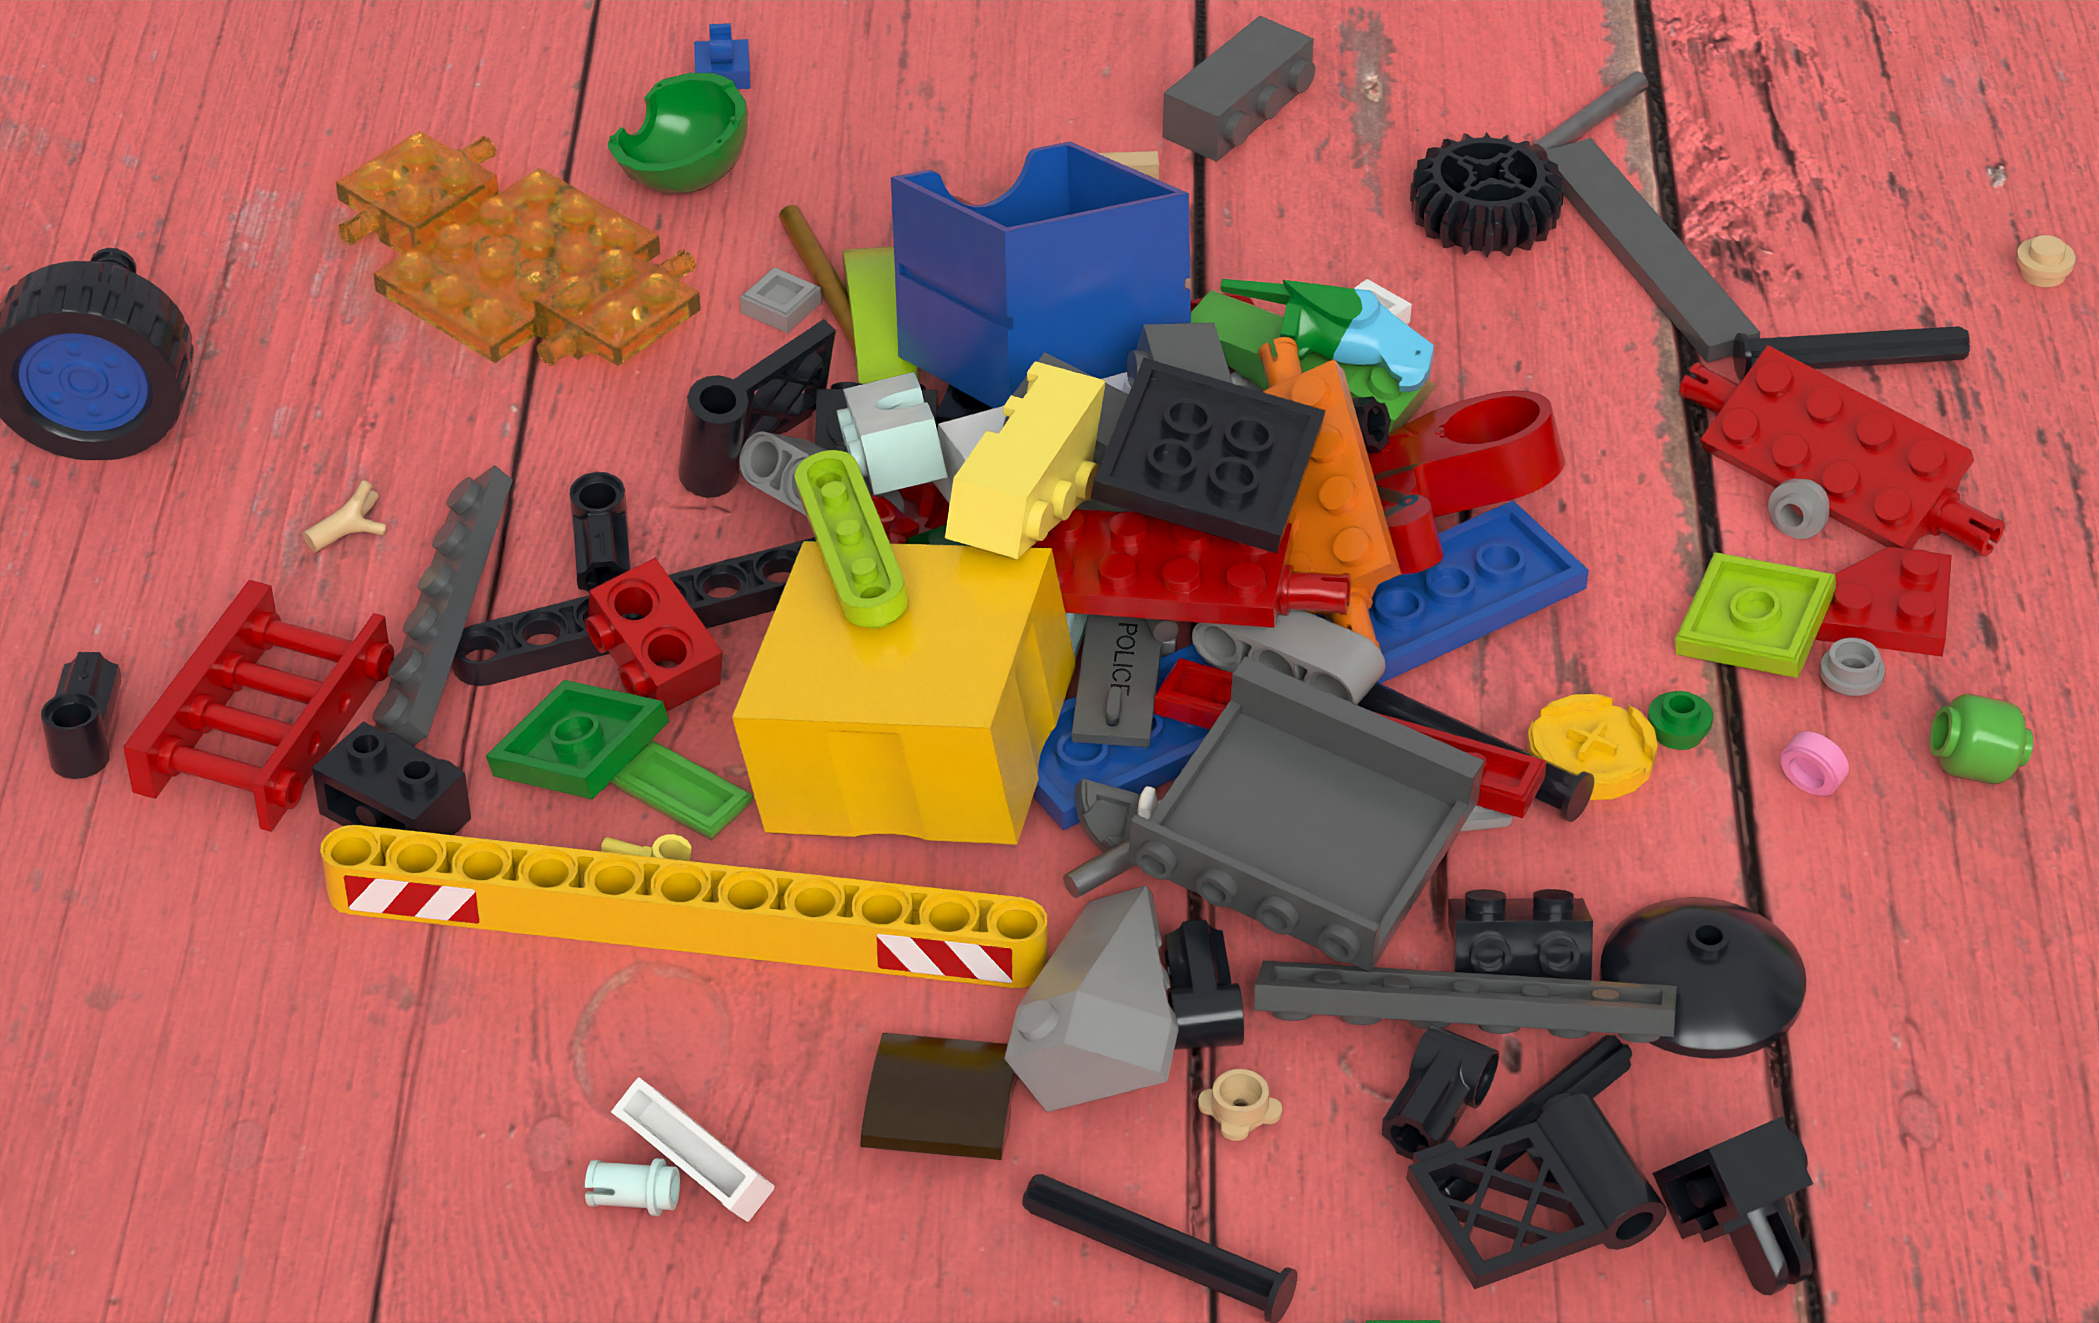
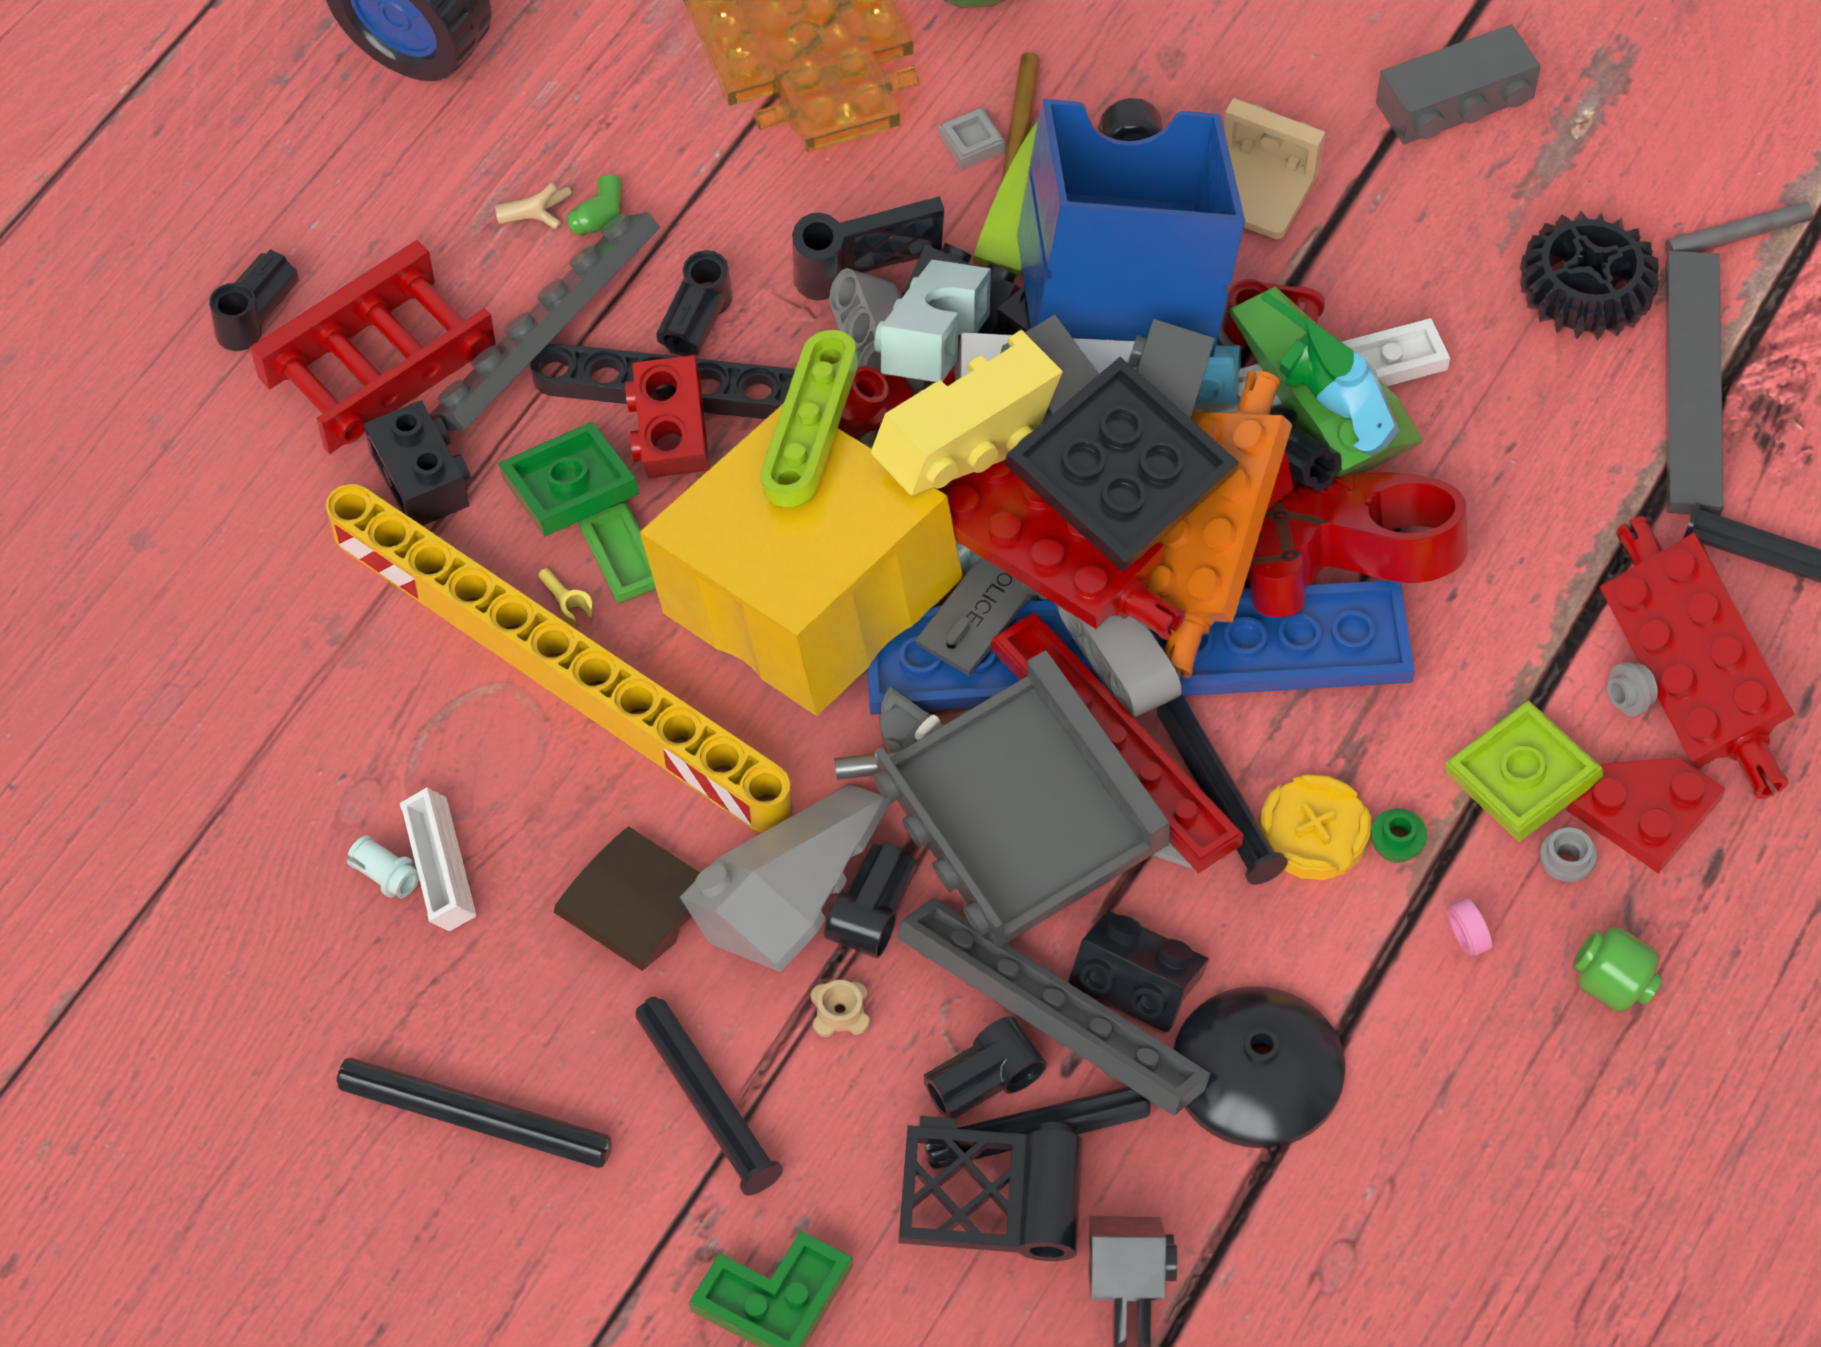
camera: 30 degrees right, 15 degrees up
(425, 496) = (597, 212): none -> bright green arm

